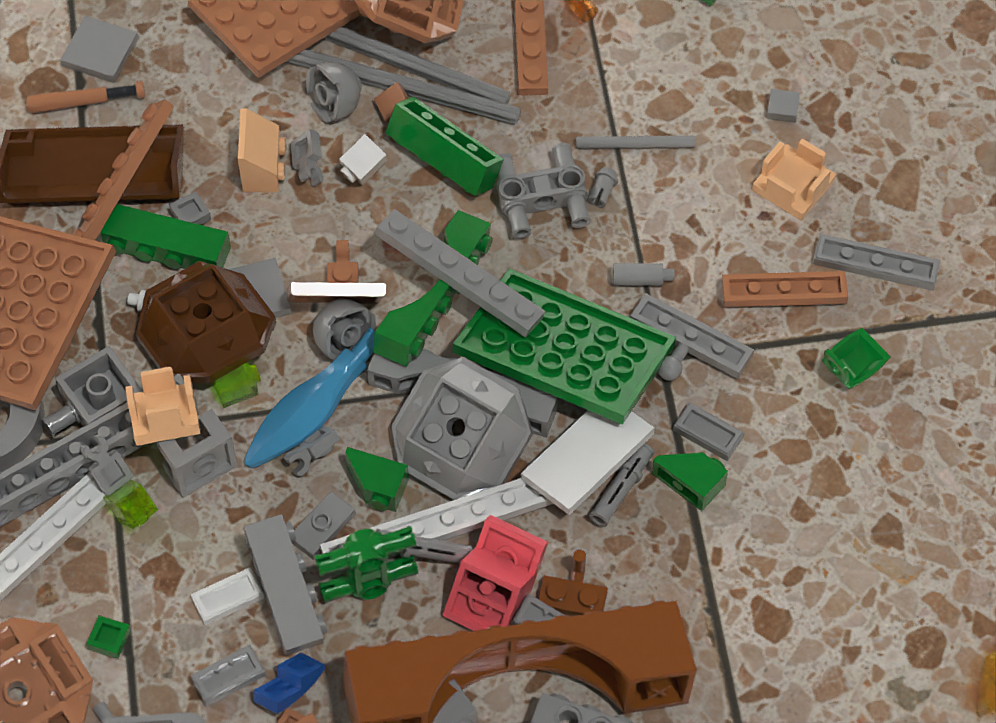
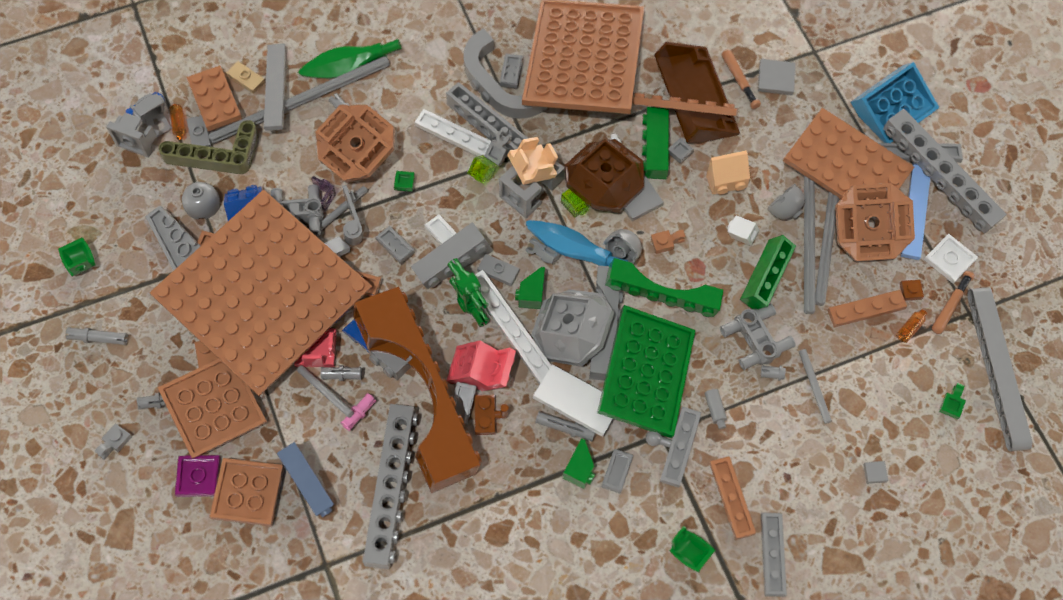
camera: 75 degrees right, 5 degrees up
(91, 390) = (547, 129): light grey brick -> none
(293, 681) = (395, 276): blue slope -> none
(305, 153) = (738, 200): light grey plate -> none
(328, 292) = (642, 234): tile -> none
(387, 100) = (795, 237): nougat tile -> none
(455, 553) = (492, 322): light grey pin -> none
(460, 273) = (672, 297): light grey plate -> none
(794, 177) = (819, 489): light nougat panel -> none

